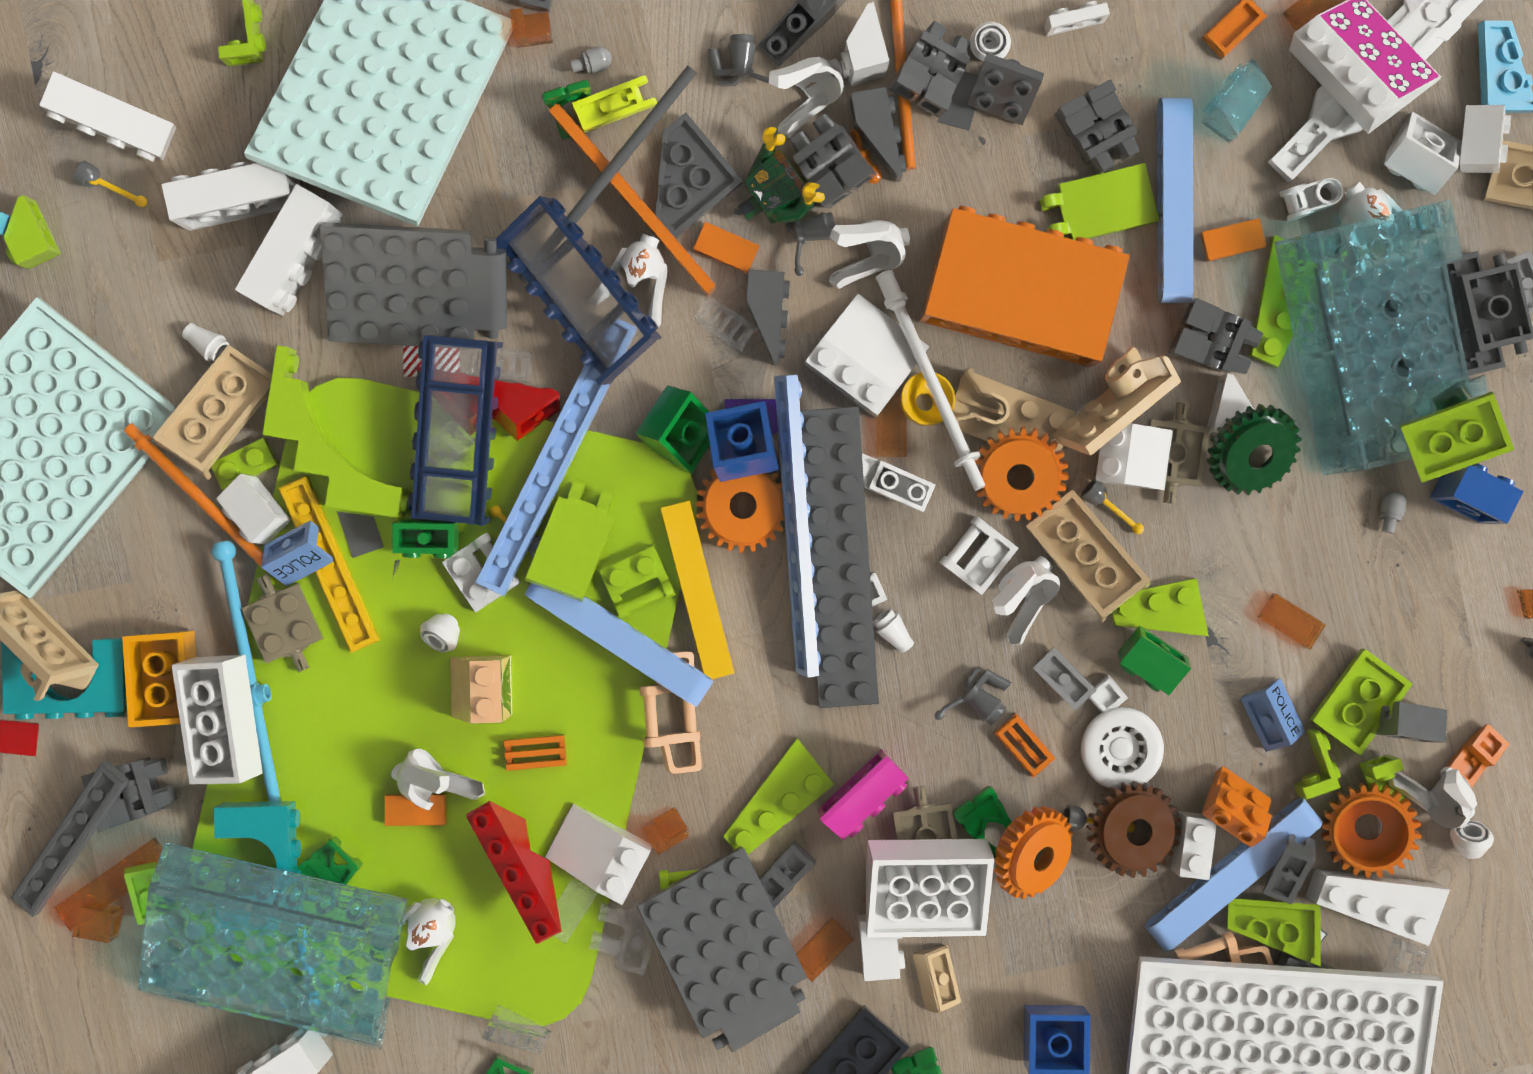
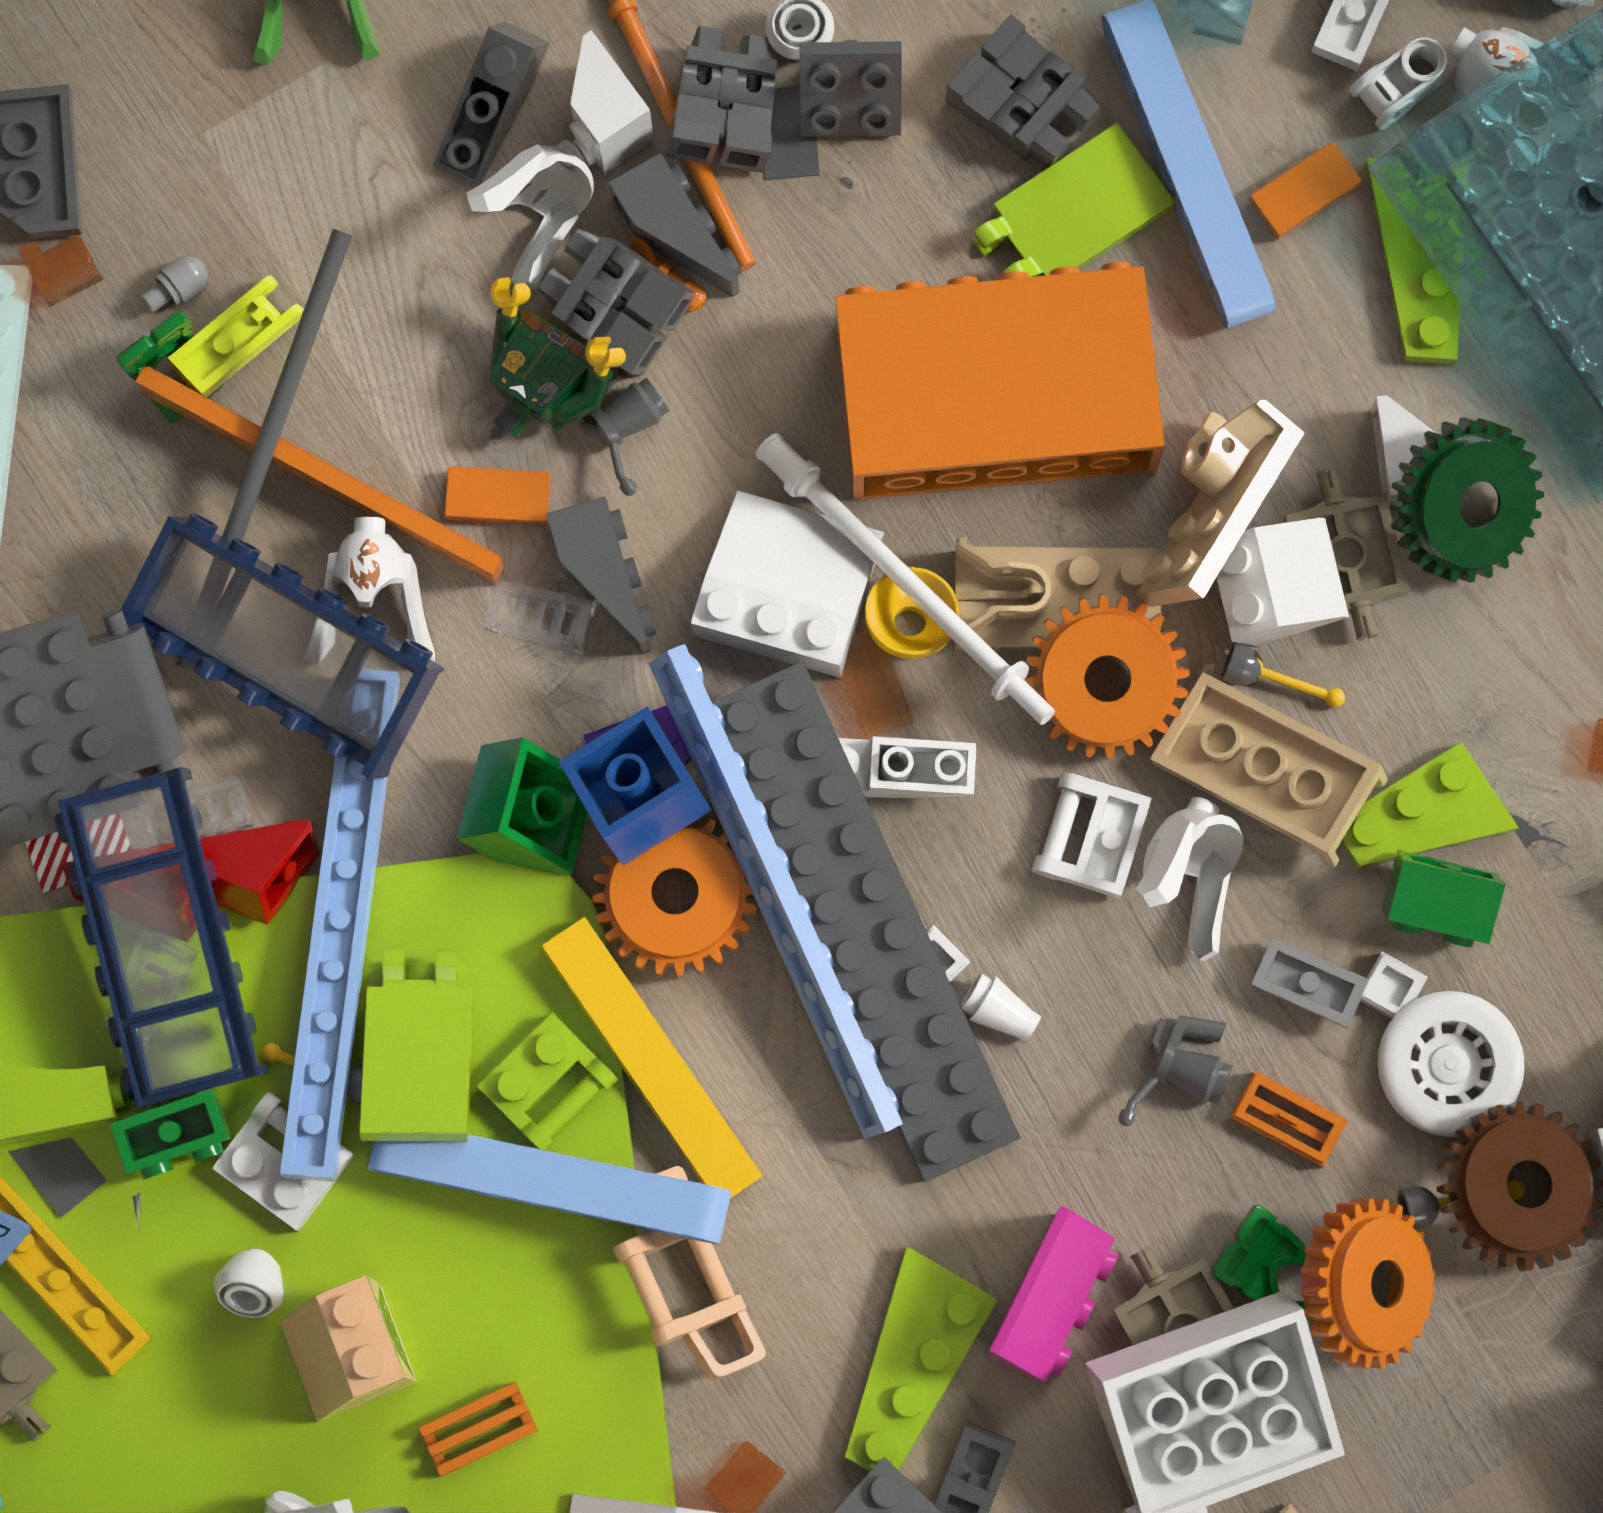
camera: 15 degrees left, 10 degrees down
(690, 176) = (400, 404): dark grey plate -> none
(741, 54) = (413, 188): dark grey piece -> none
(885, 245) = (748, 393): white piece -> none
(1205, 319) = (1309, 324): dark grey hips -> none

